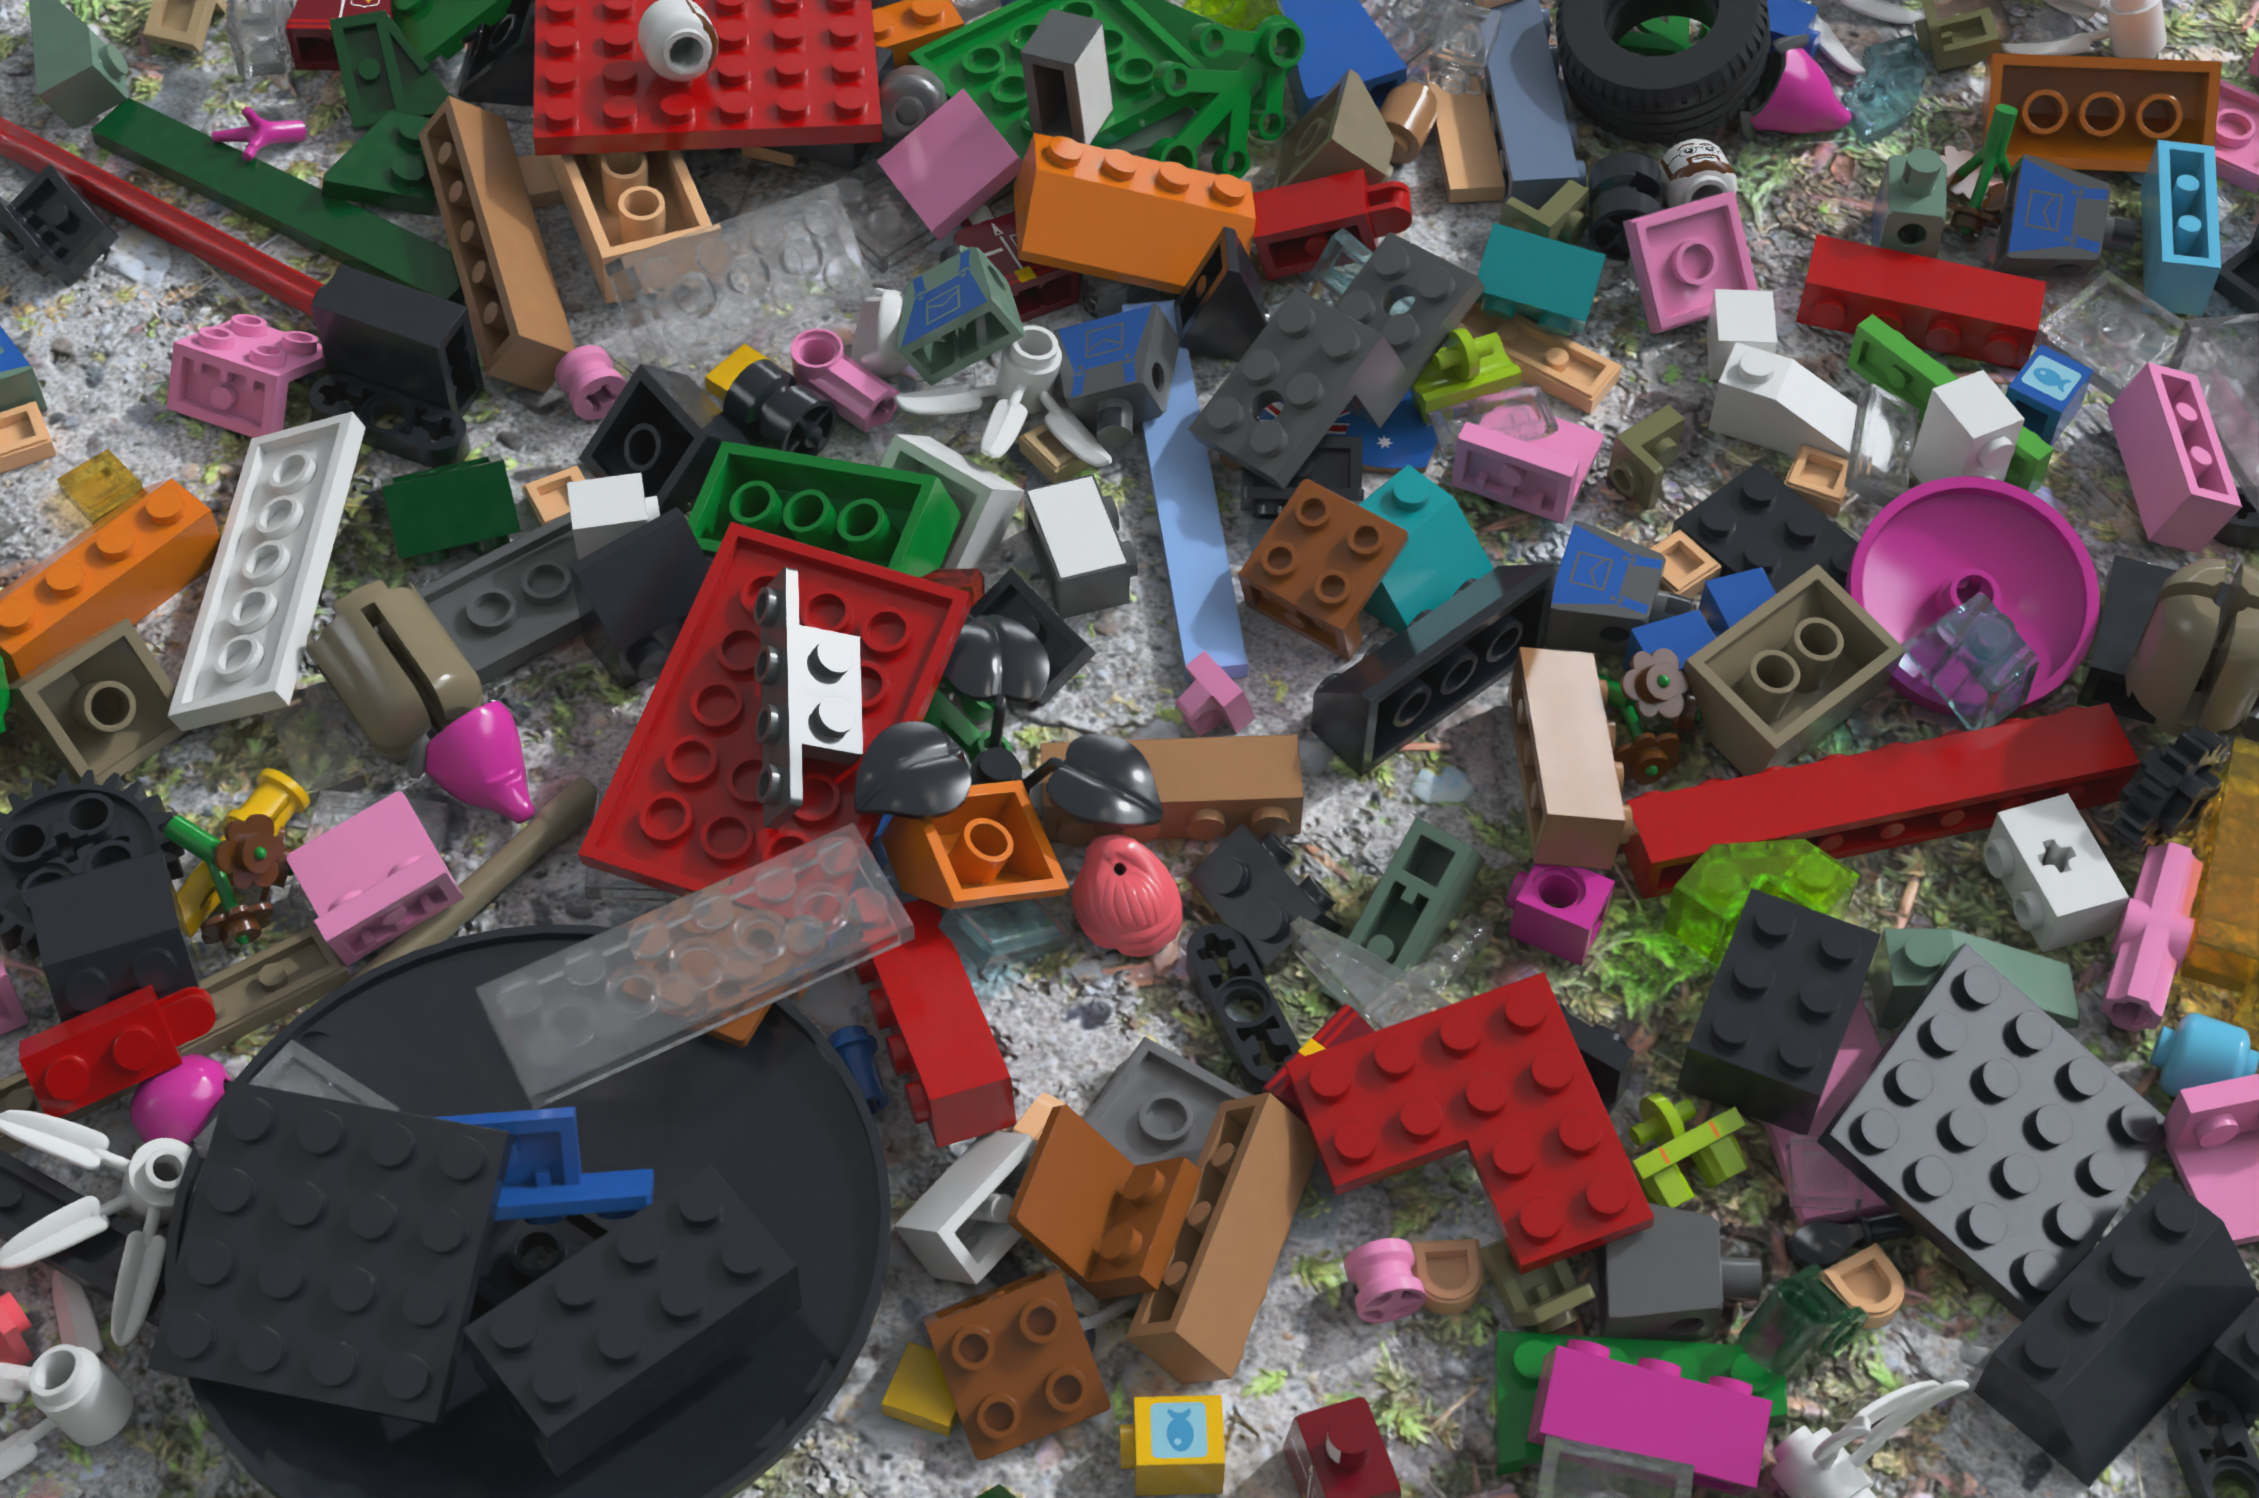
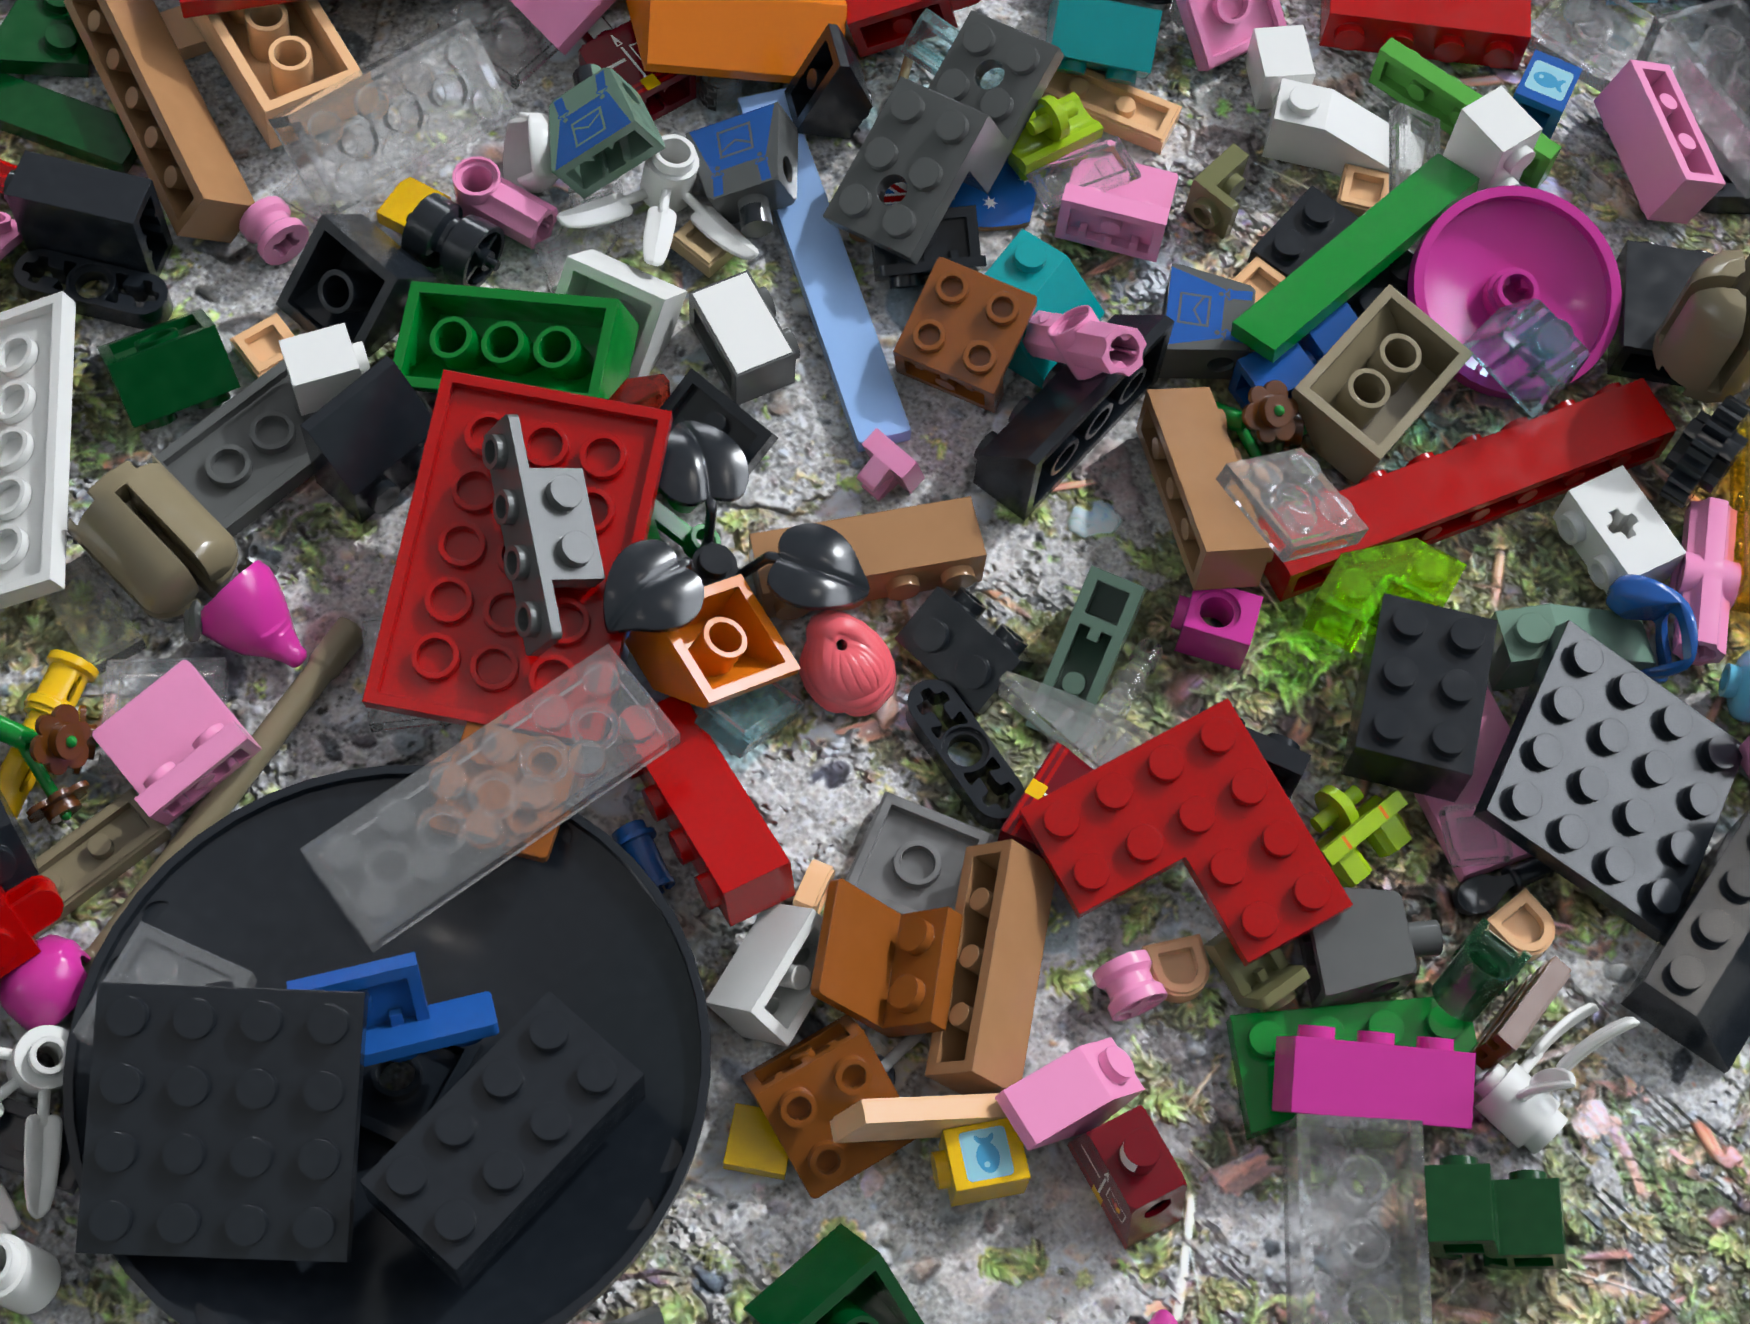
camera: 15 degrees left, 10 degrees up
(1106, 1374) = (912, 1117): none -> light nougat tile
(1286, 1375) = (1071, 1094): none -> bright pink slope
(1450, 582) = (1084, 343): none -> bright pink piece
(1661, 781) = (1292, 504): none -> clear plate
(1780, 538) = (1352, 258): none -> green tile
(1841, 1374) = (1520, 1013): none -> tile
(2078, 945) = (1648, 599): none -> blue piece

